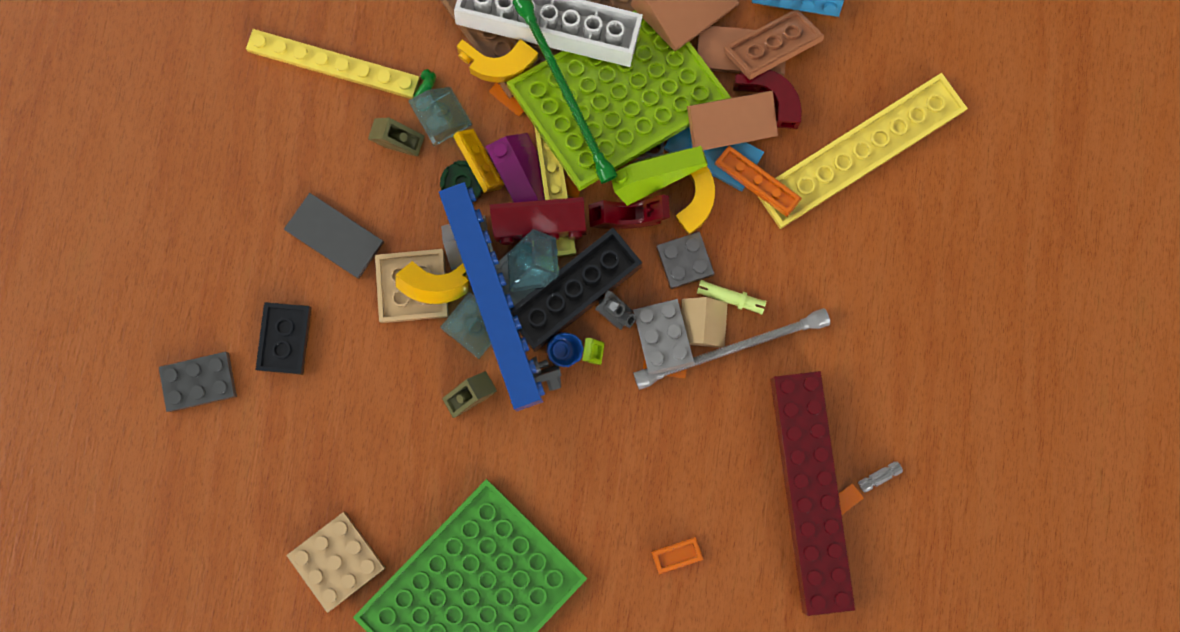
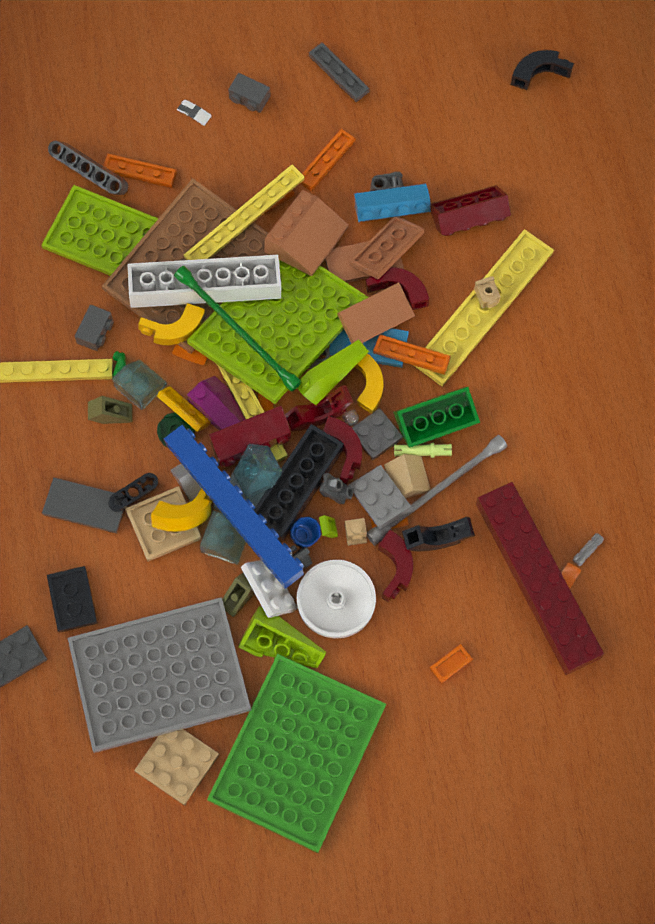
camera: 25 degrees left, 10 degrees down
(347, 457) = (158, 675): none -> light grey plate
(394, 230) = (119, 494): none -> black beam
(411, 34) = (94, 328): none -> dark grey brick
(489, 457) = (276, 636): none -> lime wedge
(497, 407) = (270, 593): none -> white plate
(572, 439) = (336, 599): none -> white dish
(622, 367) = (355, 531): none -> tan brick
(649, 253) = (352, 446): none -> dark red arch
(663, 232) = (351, 418): none -> clear hinge
(663, 411) = (396, 550): none -> dark red arch
(713, 404) = (438, 537): none -> black arch
(761, 264) = (437, 416): none -> green slope
(871, 127) = (487, 299): none -> tan brick
(886, 29) = (470, 210): none -> dark red slope

